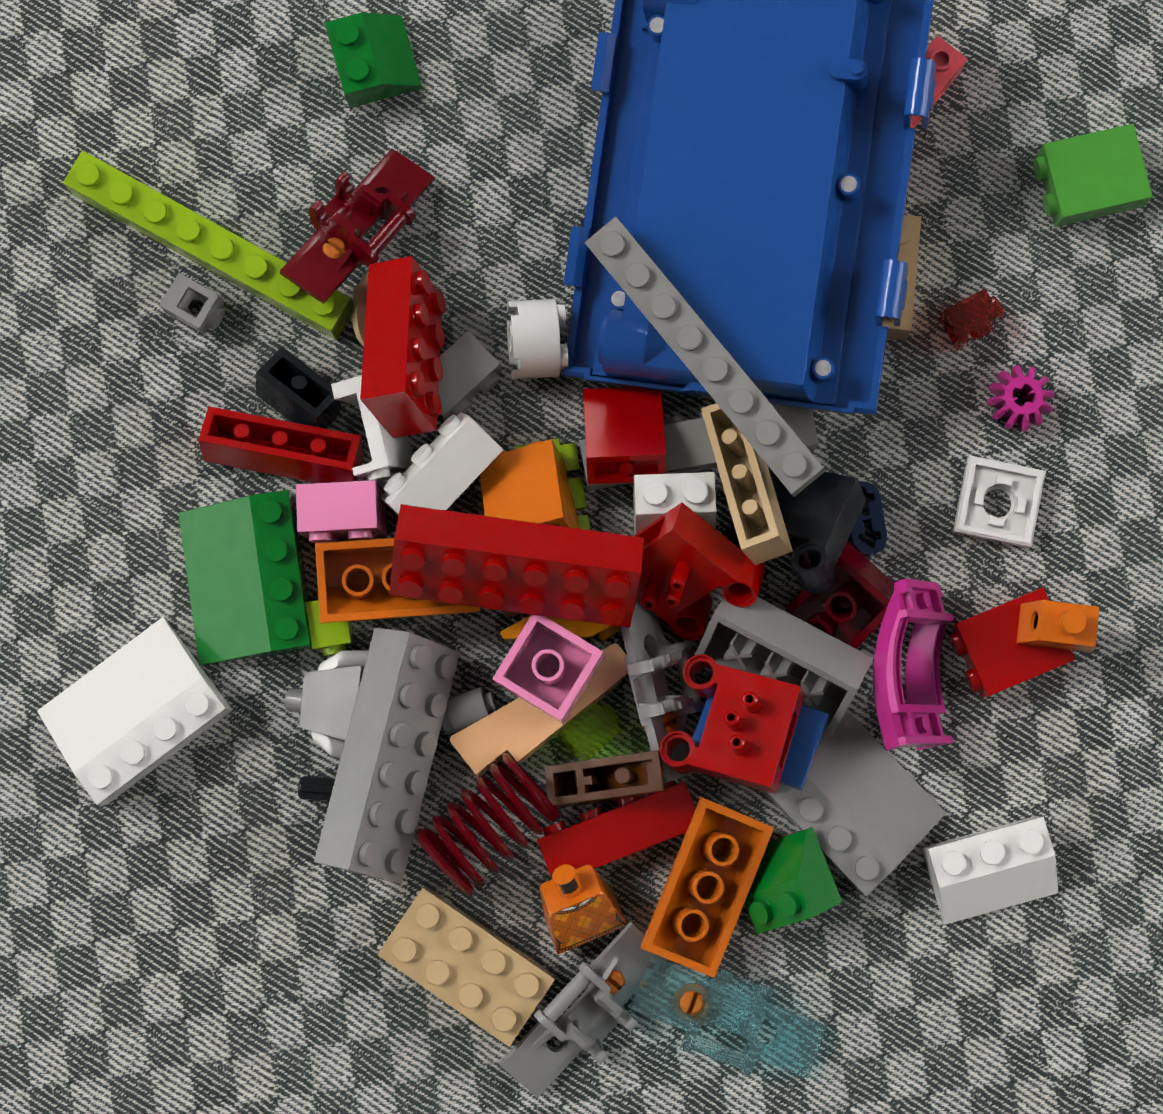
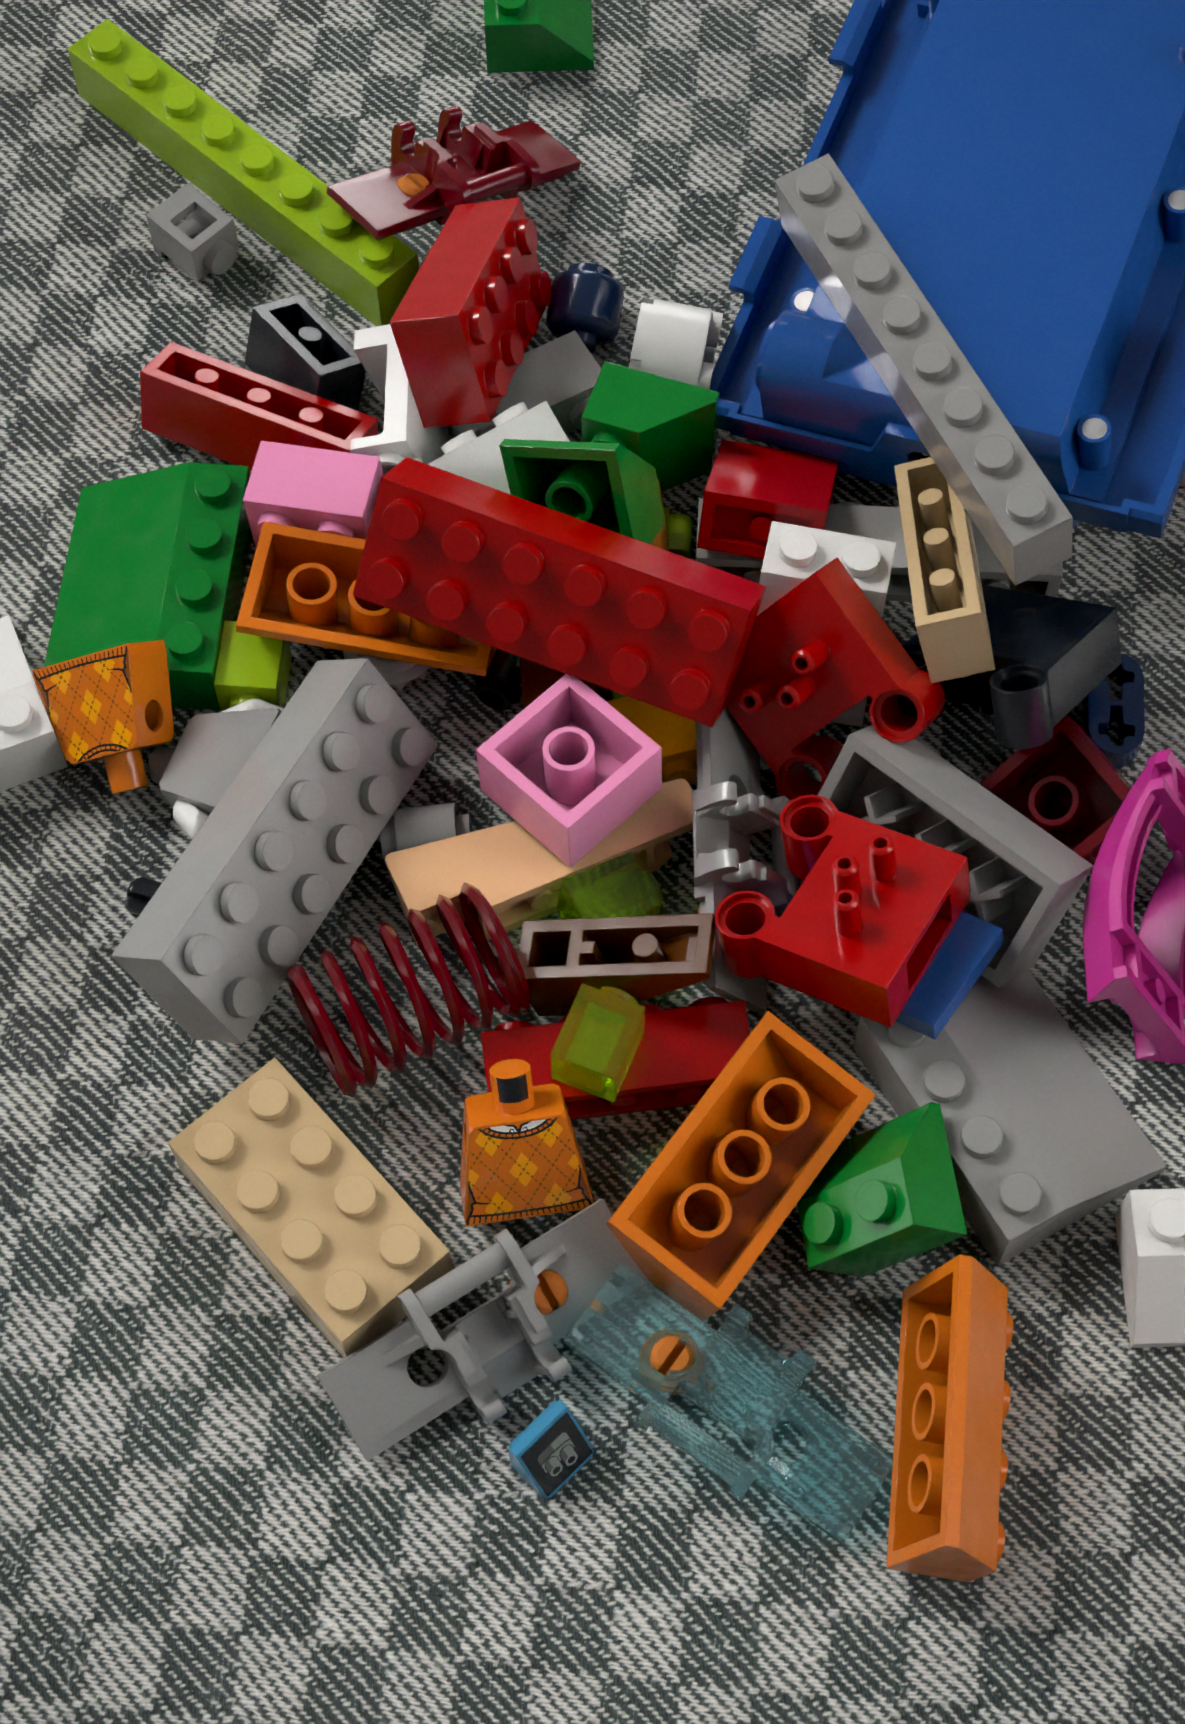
camera: 10 degrees right, 20 degrees down
(253, 681) = (111, 708): none -> orange torso
(468, 301) = (586, 302): none -> dark blue head
(515, 490) = (589, 482): none -> green slope
(531, 401) = (656, 419): none -> green slope
(609, 835) = (598, 1041): none -> clear neon green brick
(637, 1067) = (550, 1450): none -> slope
(853, 1006) = (950, 1424): none -> orange slope

